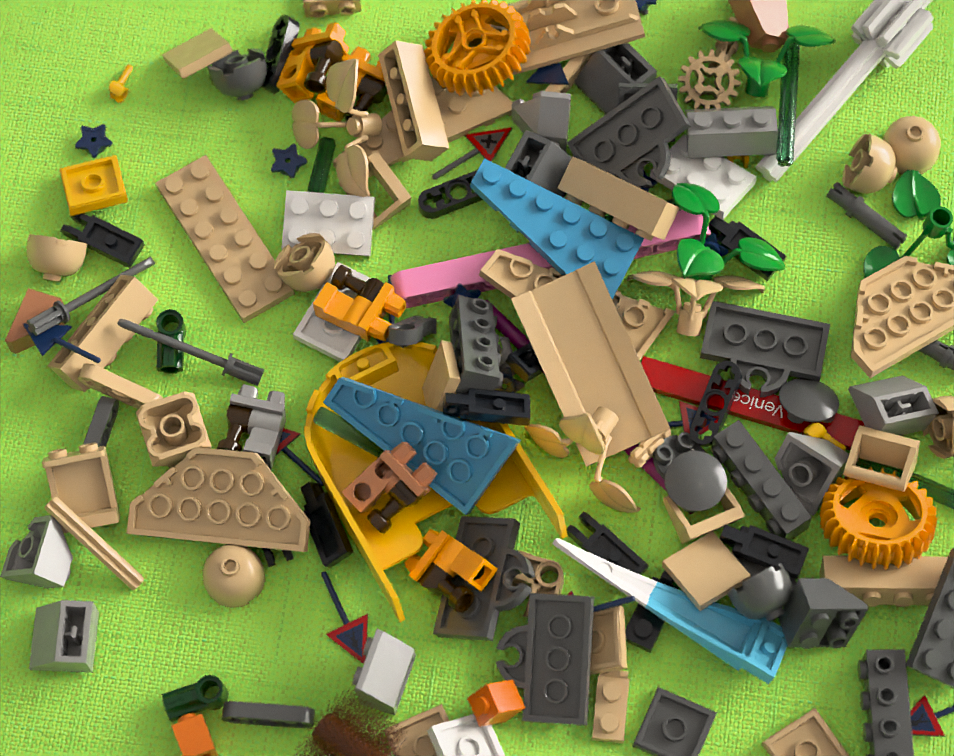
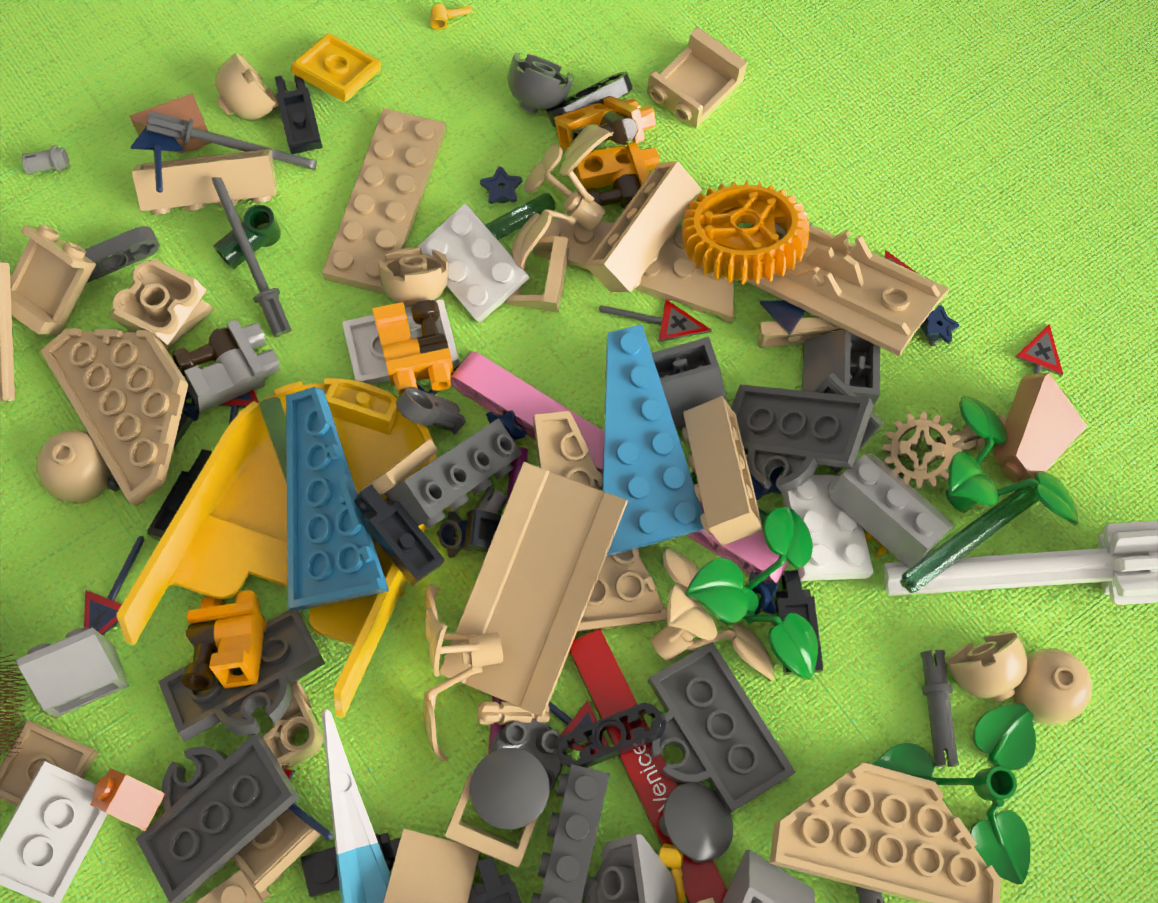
camera: 40 degrees right, 0 degrees up
(96, 147) = (382, 43): dark blue plate -> none
(116, 386) = (162, 229): tan beam -> none
(197, 53) = (525, 40): tan tile -> none
(395, 478) = (264, 515): nougat hips -> none
(435, 193) = (586, 321): black beam -> none
(544, 115) = (742, 348): light grey slope -> none
(606, 545) = (377, 767): black hinge -> none

